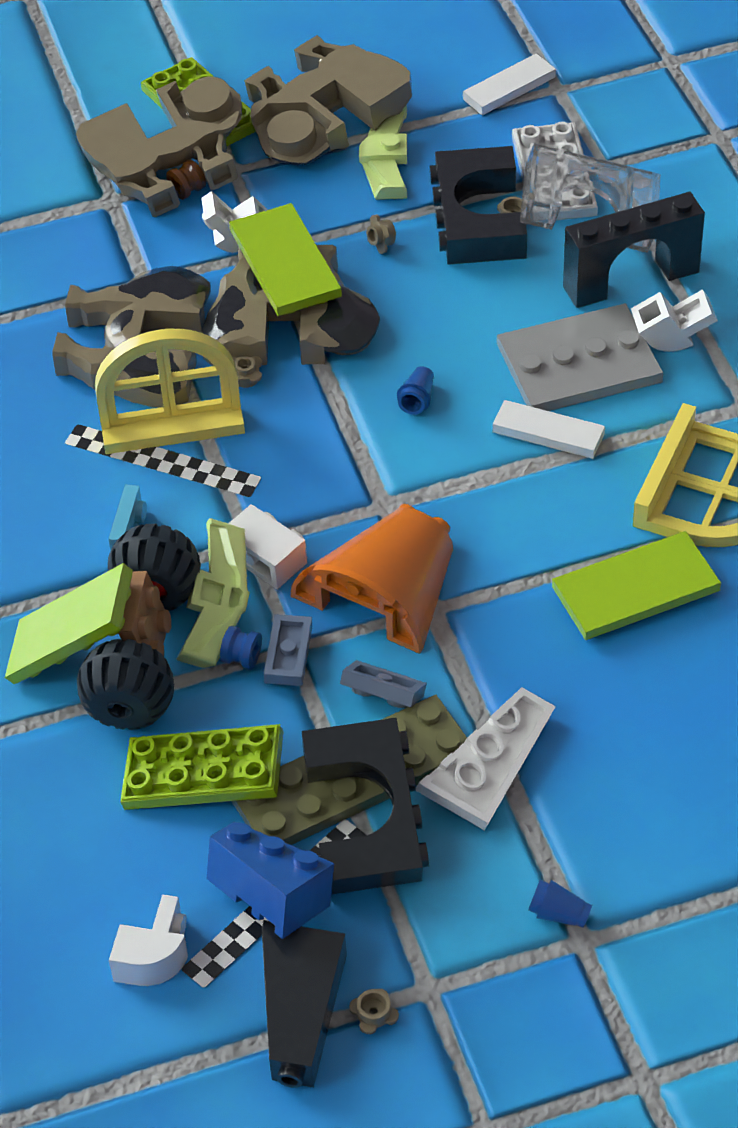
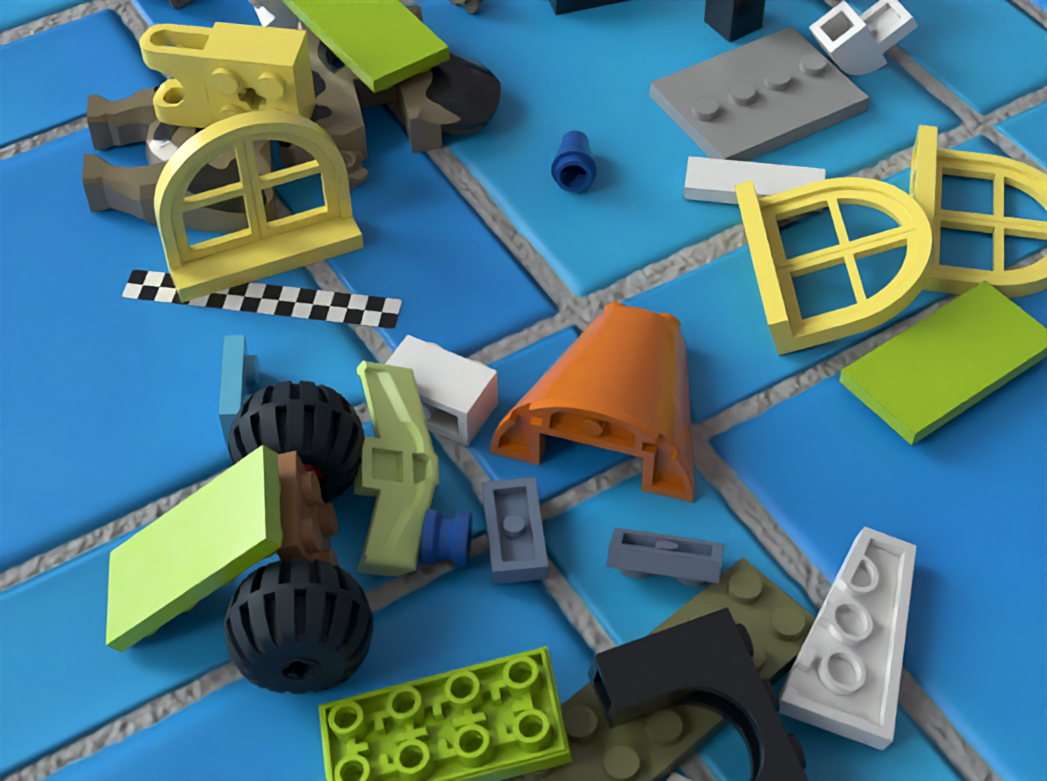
camera: 15 degrees left, 0 degrees up
(172, 291) = (228, 71): none -> light yellow brick
(533, 495) = (776, 272): none -> light yellow window

